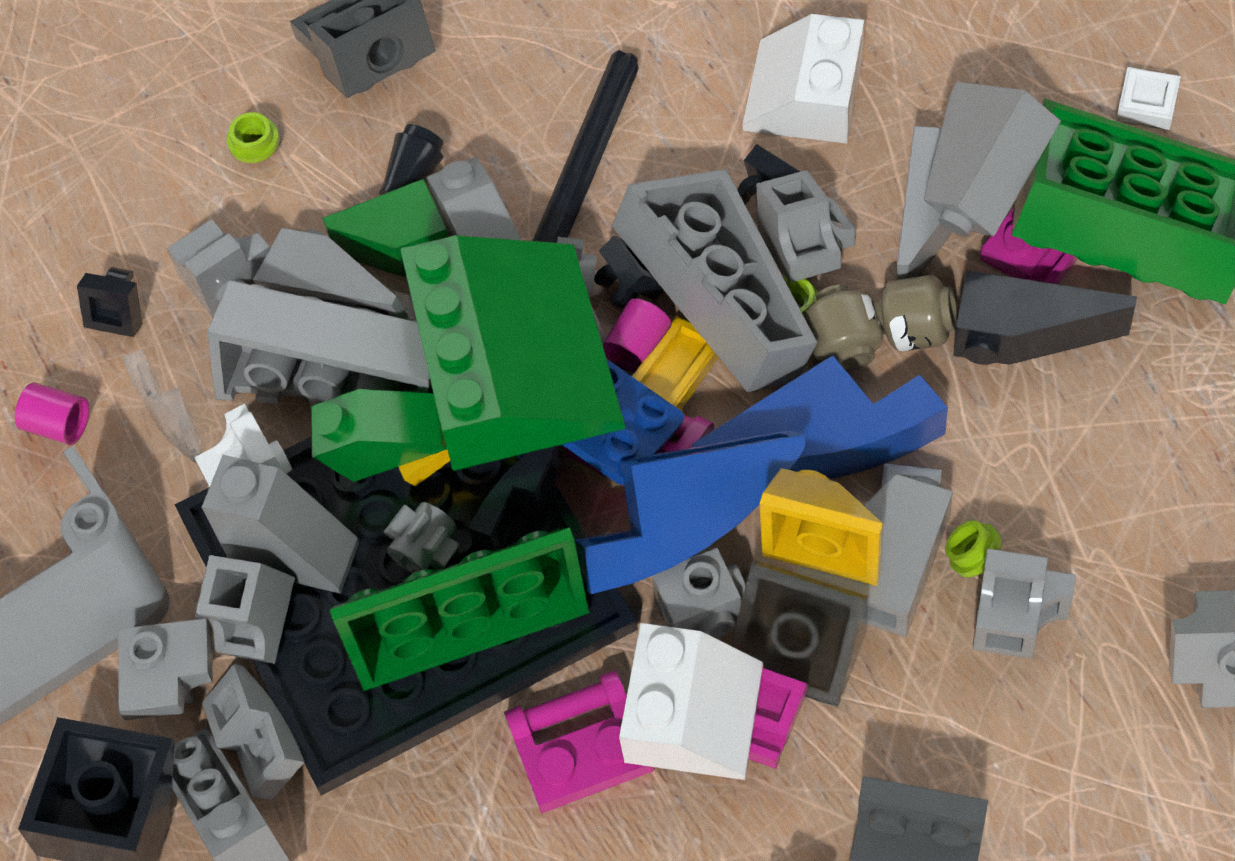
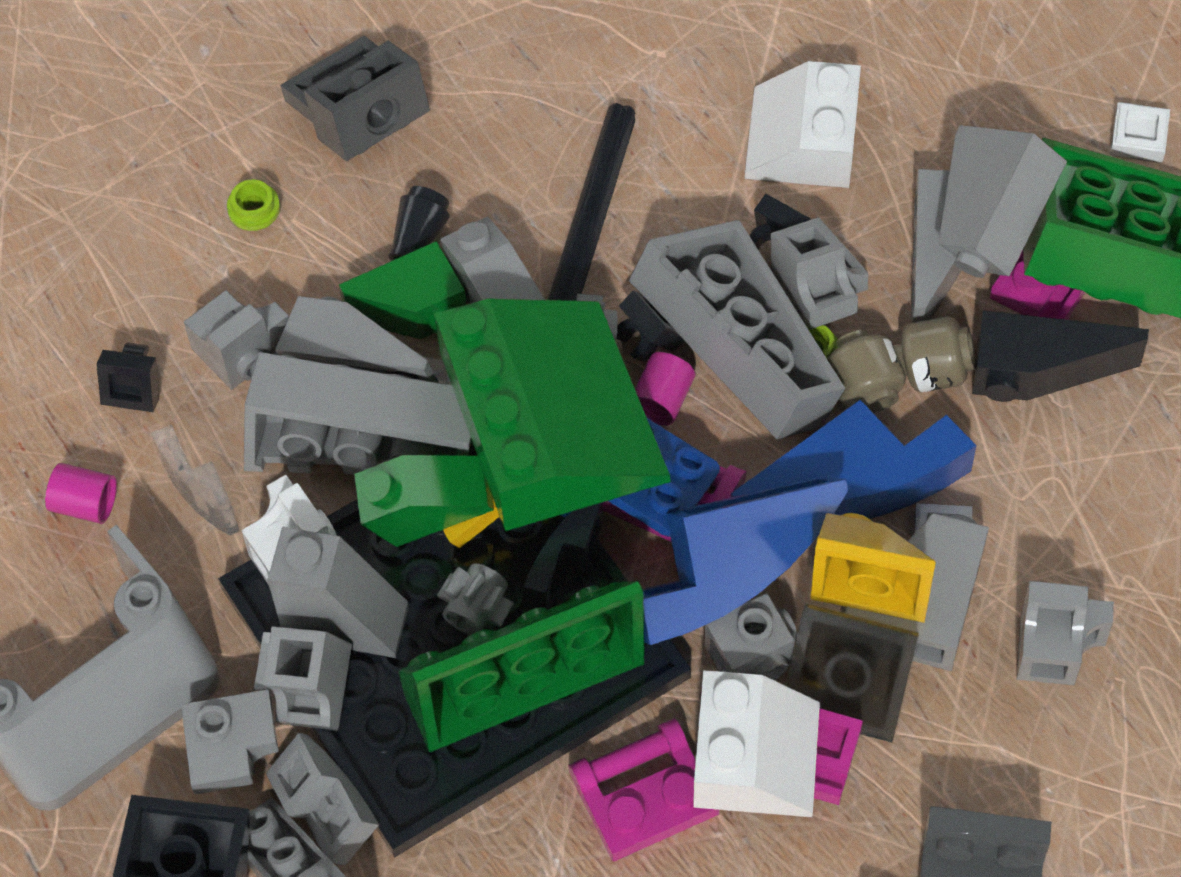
camera: 10 degrees left, 0 degrees up
(677, 364) = (705, 413): yellow tile -> none
(969, 546) = (1008, 581): lime plate -> none

